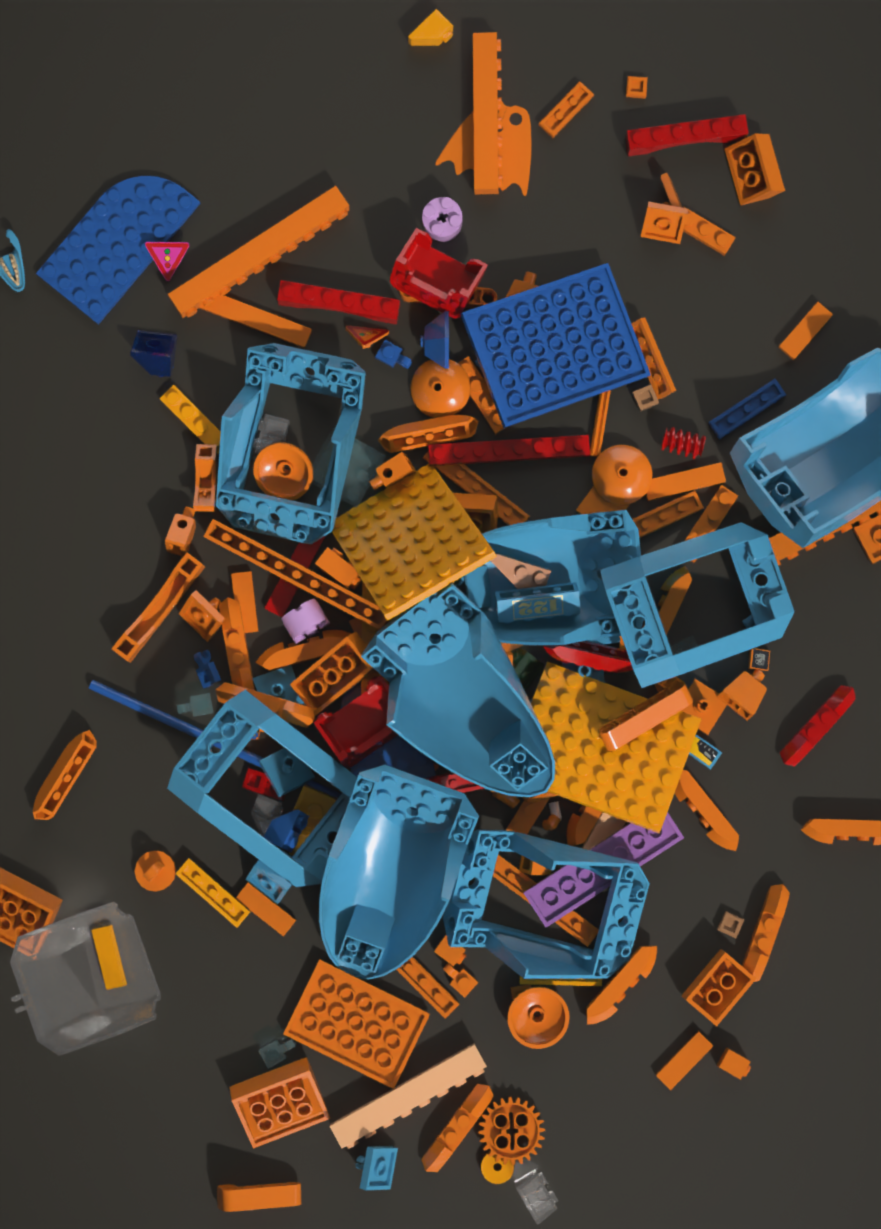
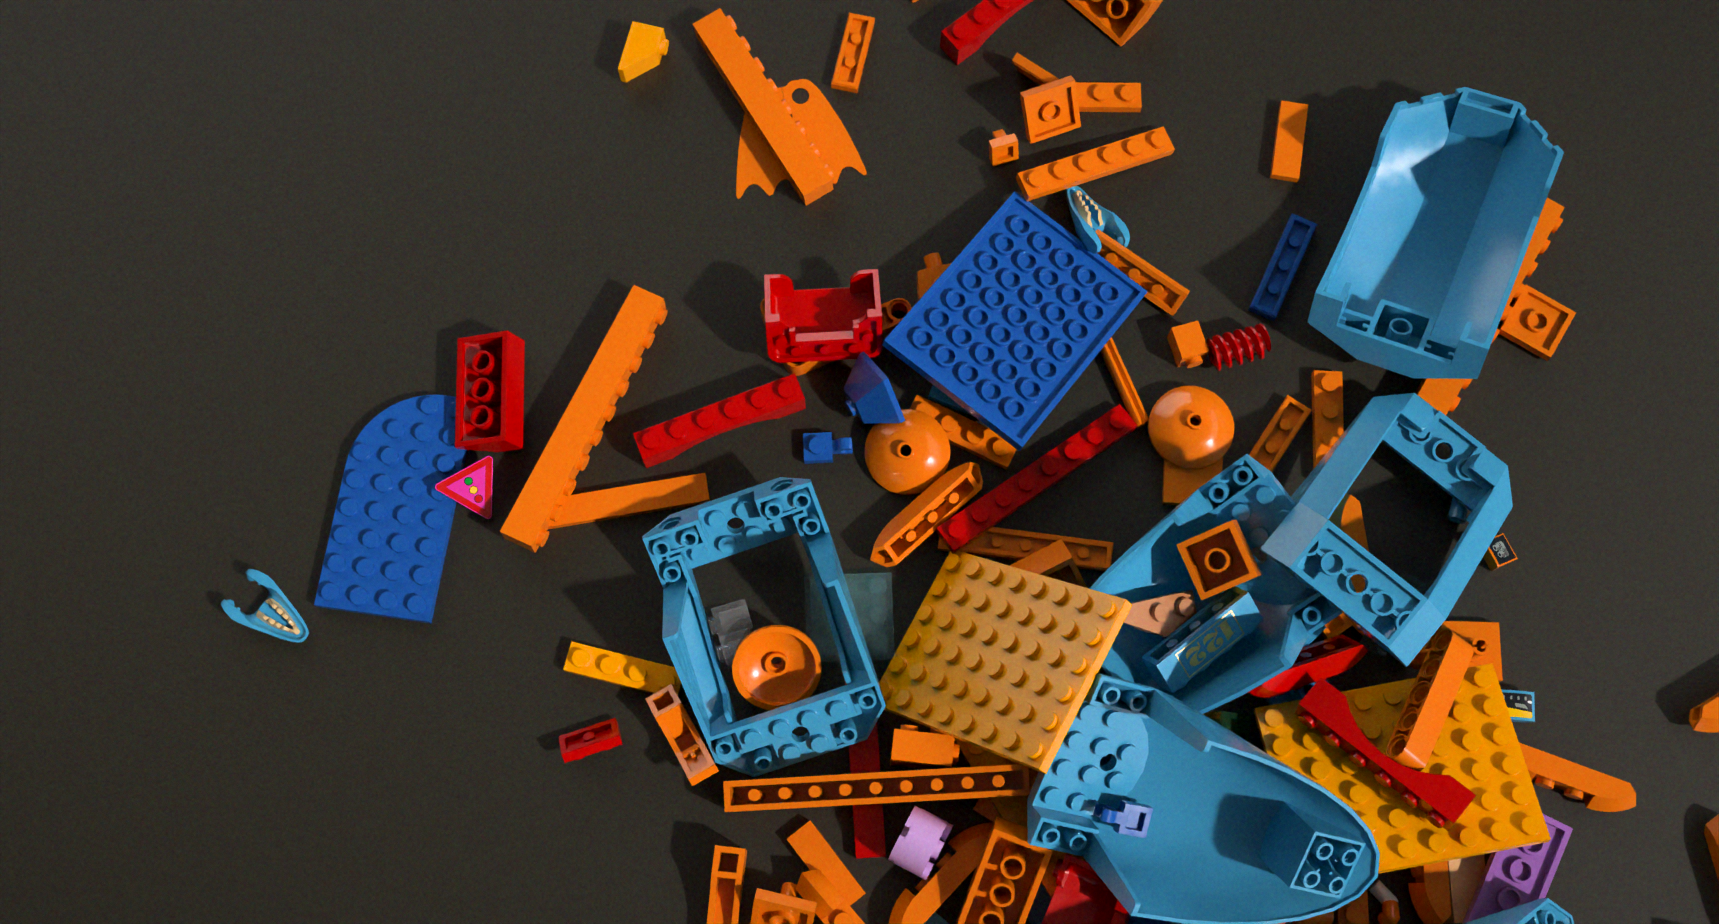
camera: 30 degrees left, 10 degrees down
(151, 449) = (590, 740): none -> red plate
(155, 352) = (524, 614): clear blue slope -> none
(181, 532) = (693, 833): orange torso -> none
(210, 203) = (490, 392): none -> red slope
(366, 336) = (777, 442): piece -> none
(401, 468) = (919, 574): orange torso -> none
(427, 677) = (1128, 819): none -> plate
(445, 208) = (786, 238): lavender brick -> none
(574, 562) = (1218, 559): none -> orange brick
(611, 769) = (1436, 795): none -> red arch
(619, 229) = (1003, 148): none -> orange tile
(645, 398) = (1158, 321): medium nougat plate -> none
(647, 306) = (1090, 216): none -> dark azure animal
(653, 423) = (1188, 344): none -> orange brick
(671, 274) = (1094, 163): none -> orange plate
(686, 481) = (1270, 391): orange tile -> none
(730, 924) = (1691, 905): medium nougat tile -> none
(745, 693) = (1514, 602): orange torso -> none
(818, 725) = (1622, 589): red brick -> none

